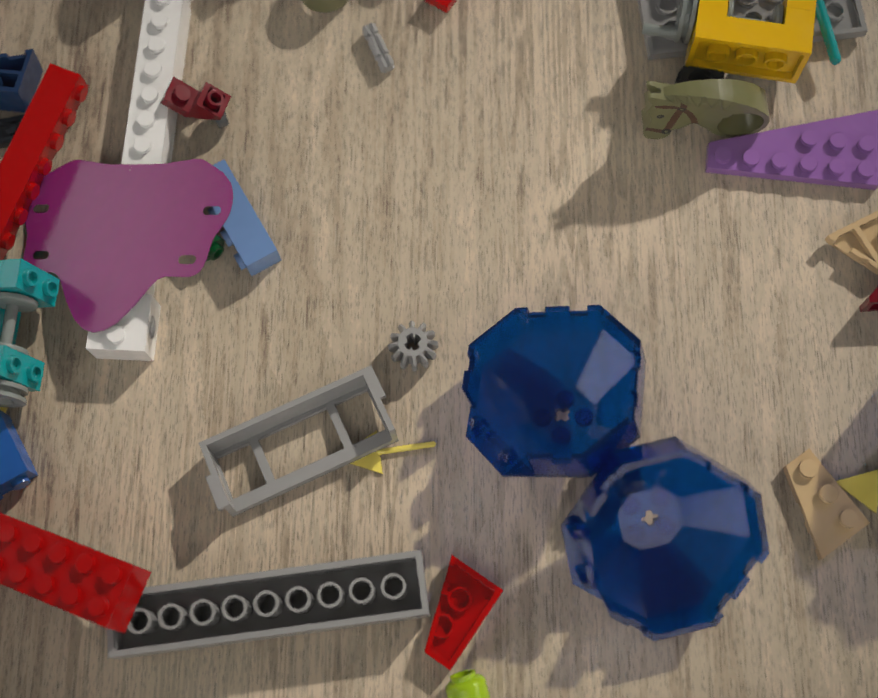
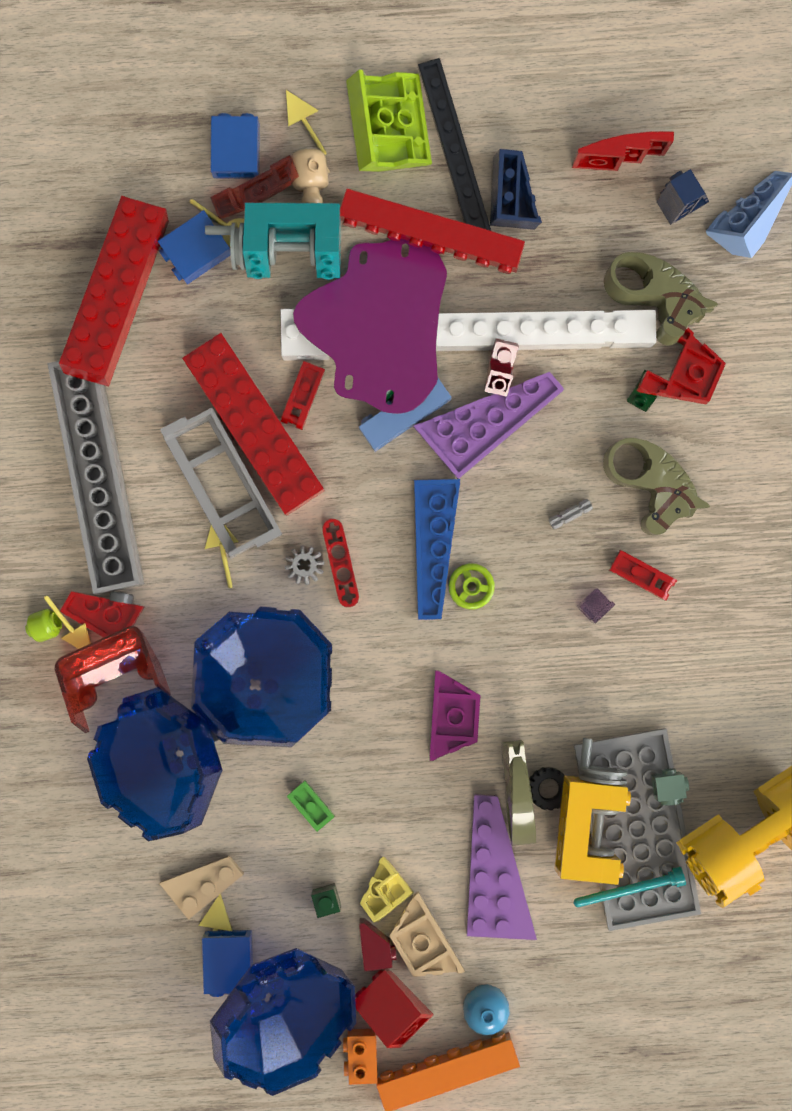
camera: 80 degrees right, 15 degrees up
(199, 336) = (303, 394): none -> red plate
(226, 396) = (253, 424): none -> red brick
(266, 139) = (476, 429): none -> medium lavender wing
(375, 193) = (434, 527): none -> blue wing
(415, 310) = (344, 562): none -> red beam
(437, 583) = (121, 597): none -> dark grey tile
(454, 147) = (460, 600): none -> lime piece
(488, 651) = (77, 637): none -> light yellow piece
(489, 26) = (595, 606): none -> clear purple panel
(521, 609) = (101, 662): none -> clear red windscreen
(611, 185) = (453, 716): none -> magenta wing
(719, 358) = (311, 805): none -> bright green plate
(826, 276) = (385, 891): none -> light yellow slope
(840, 344) = (326, 900): none -> dark green brick

